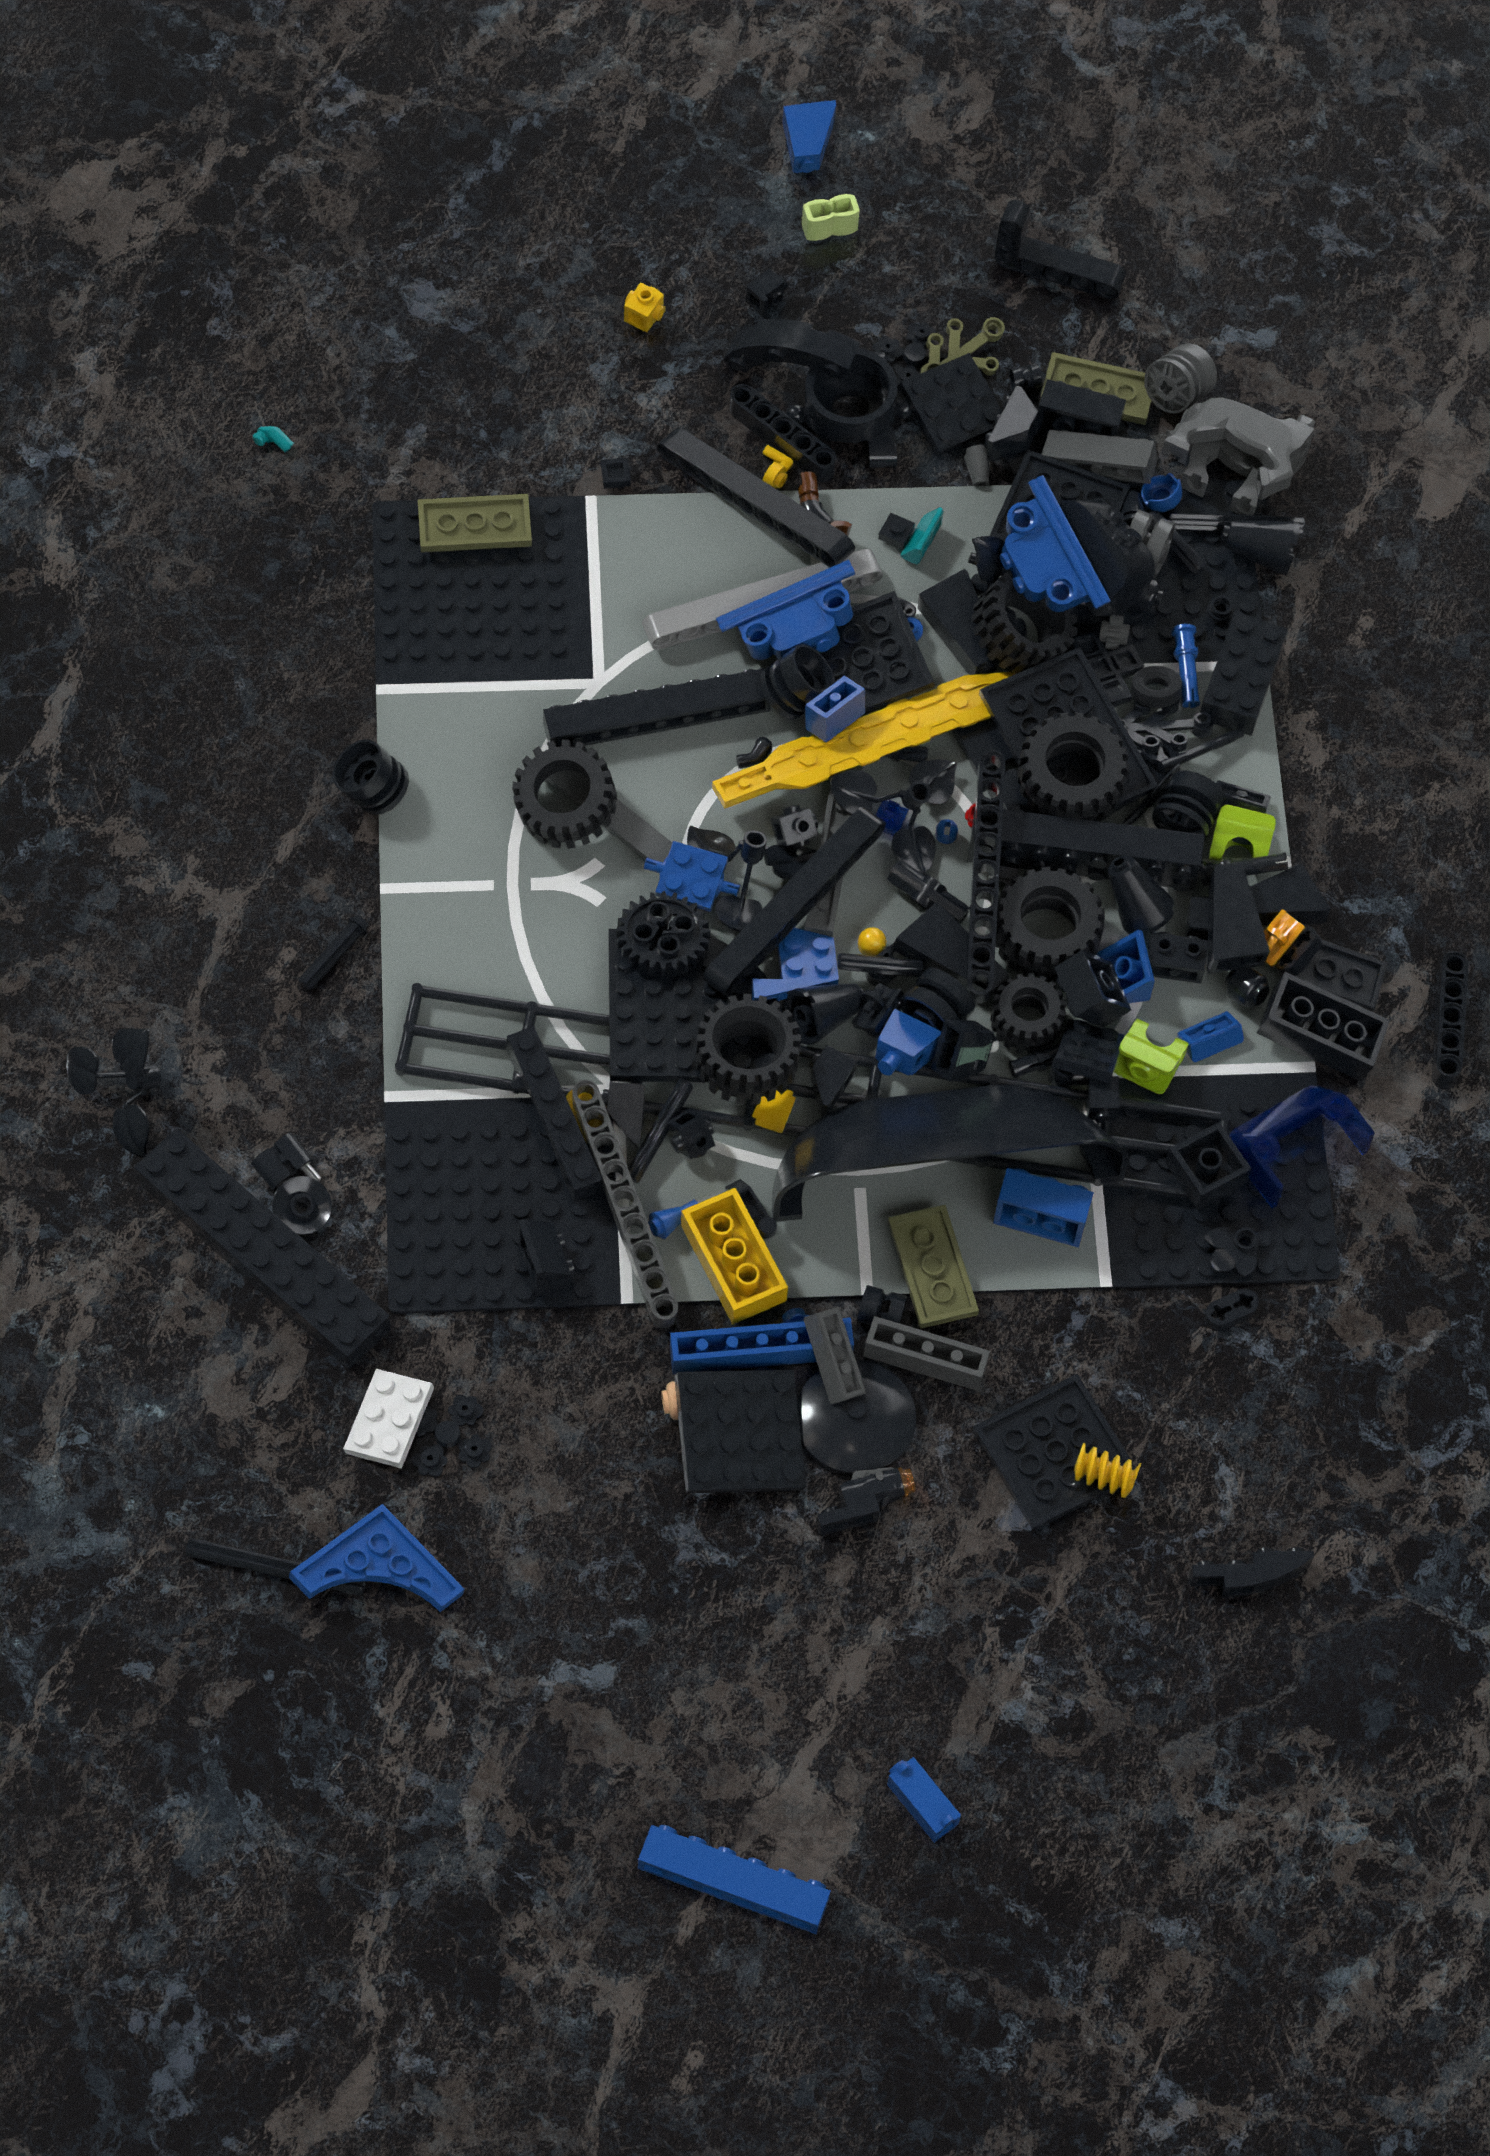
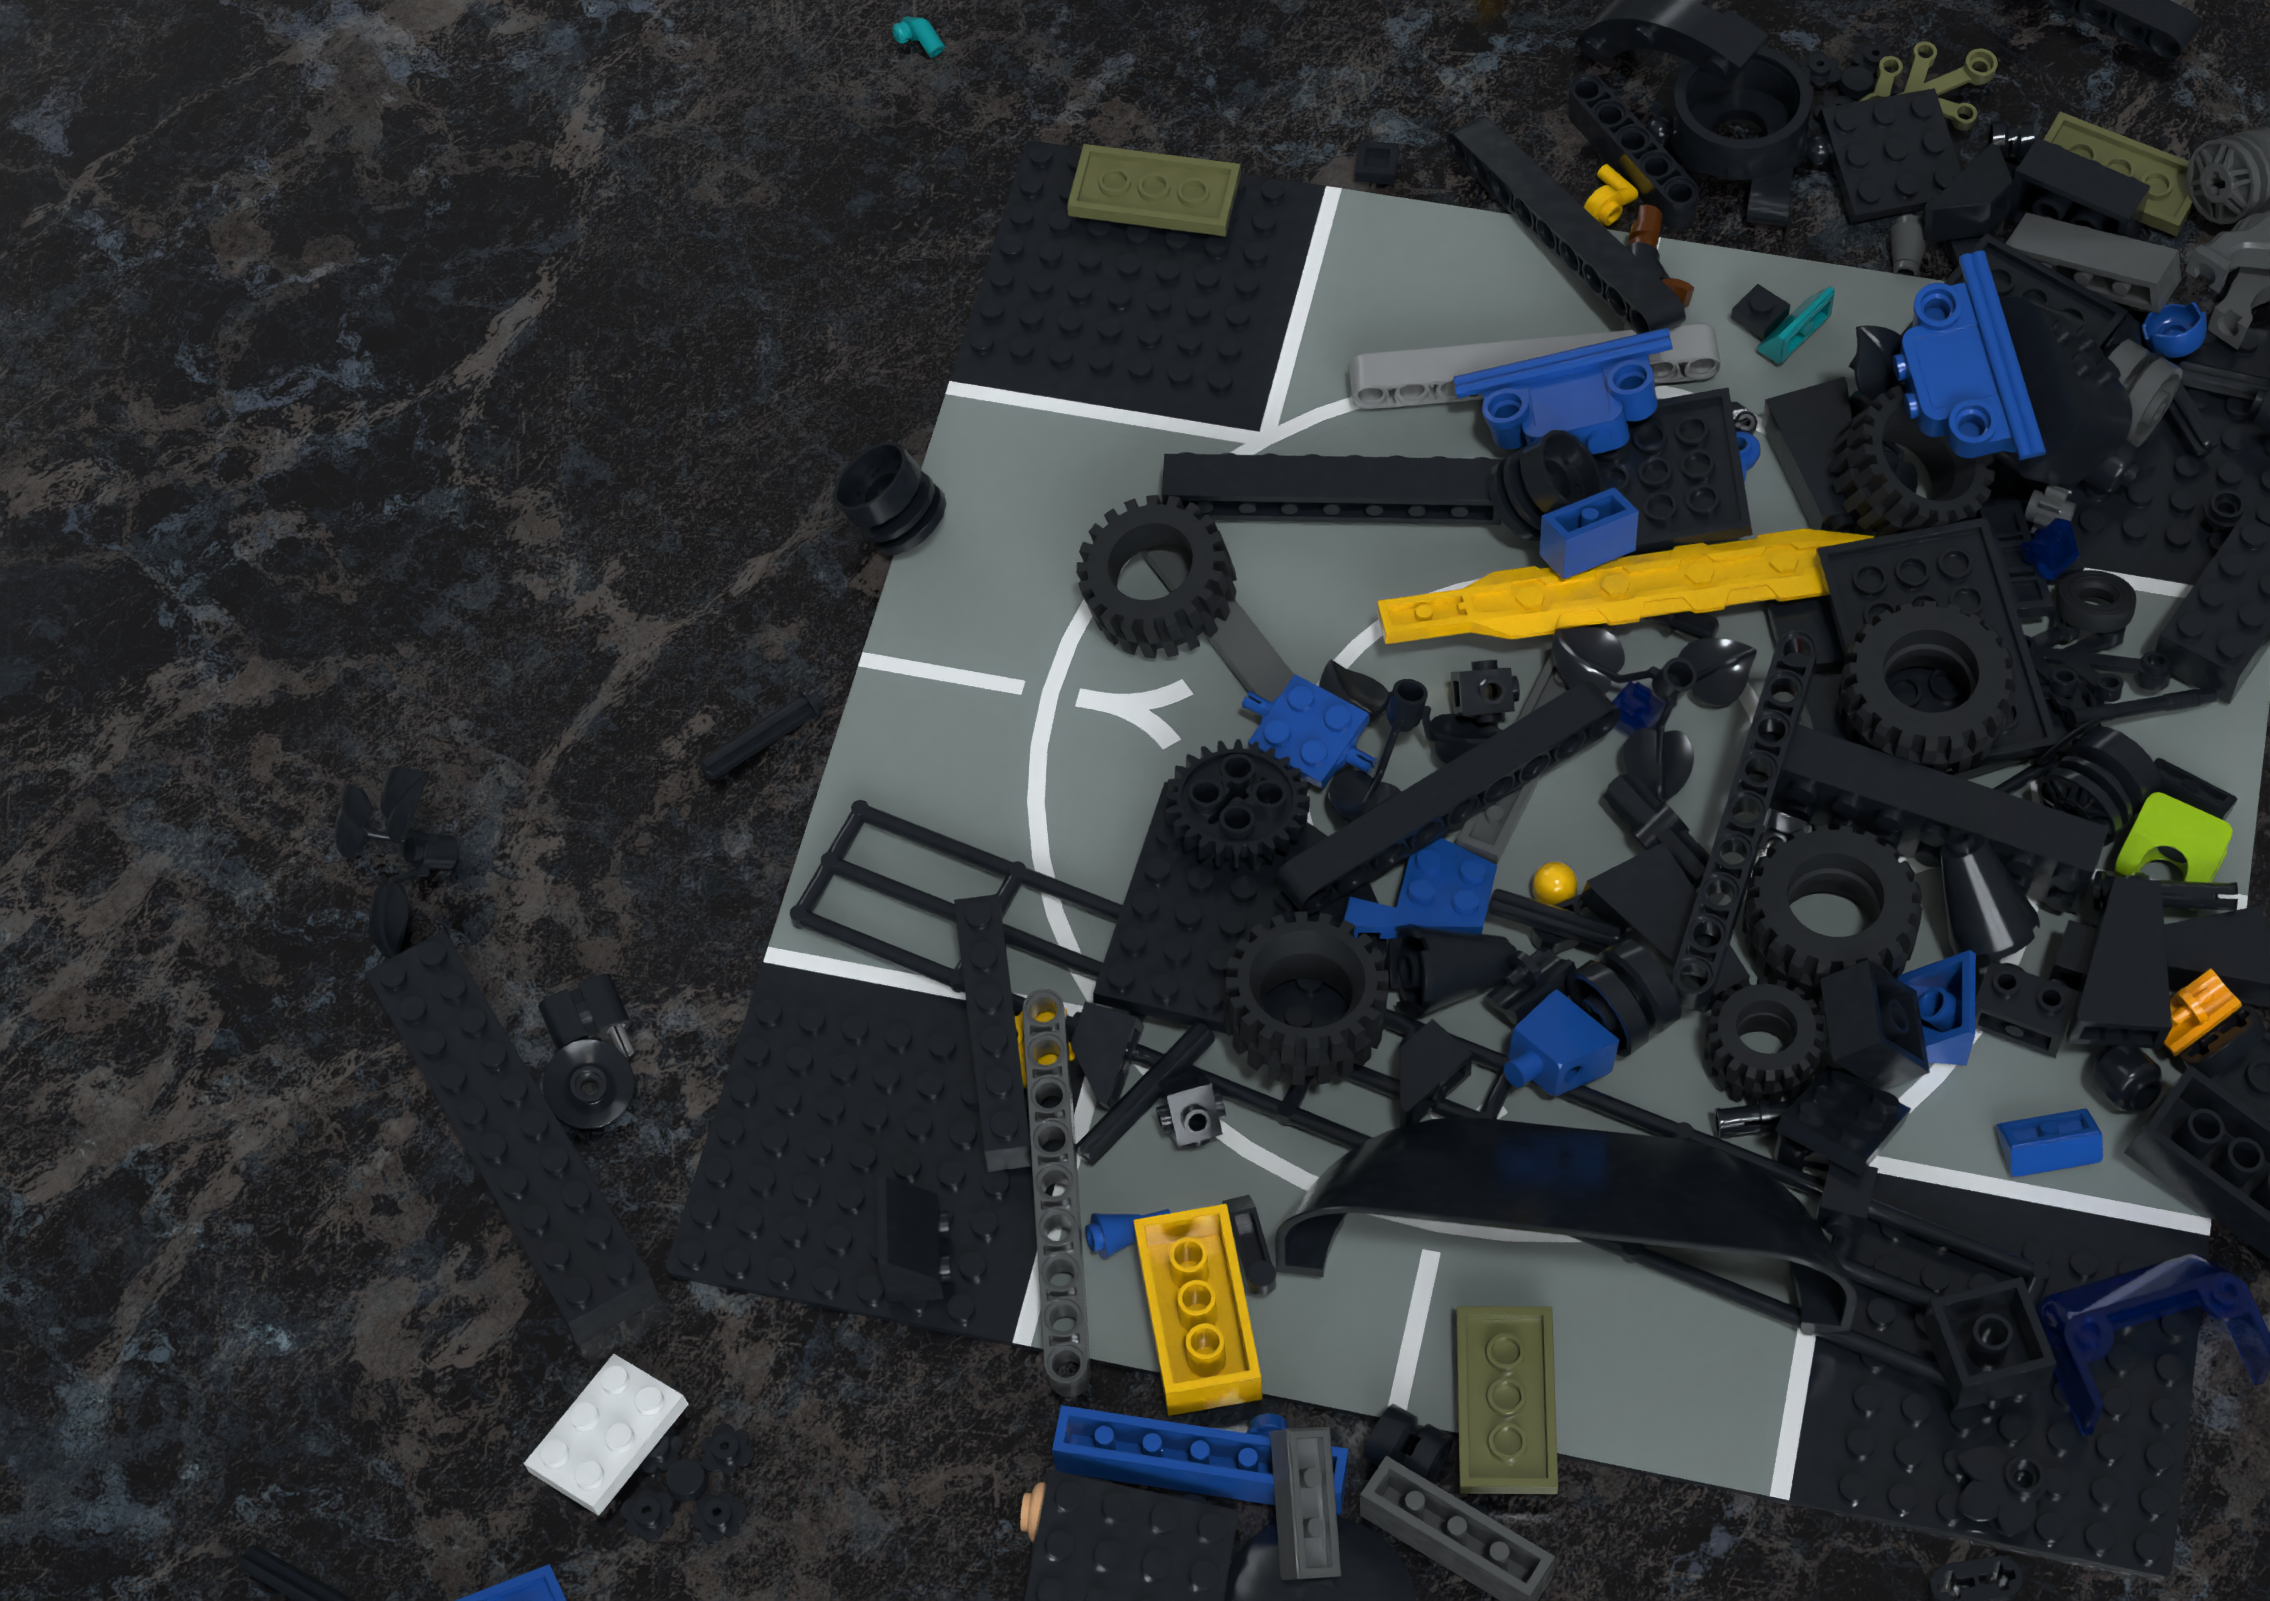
camera: 25 degrees right, 5 degrees down
(758, 754) = (1469, 572): black arm -> none
(774, 1113) = (1330, 1104): yellow sticker -> none
(939, 832) = (1724, 751): blue hinge -> none
(963, 1049) = (1645, 1072): black torso -> none
(1043, 1207) = (1704, 1346): blue brick -> none
(1123, 658) = (2052, 548): none -> clear blue tile
(1147, 1063) = (1934, 1160): lime piece -> none
(1185, 654) = (2154, 565): blue pin -> none

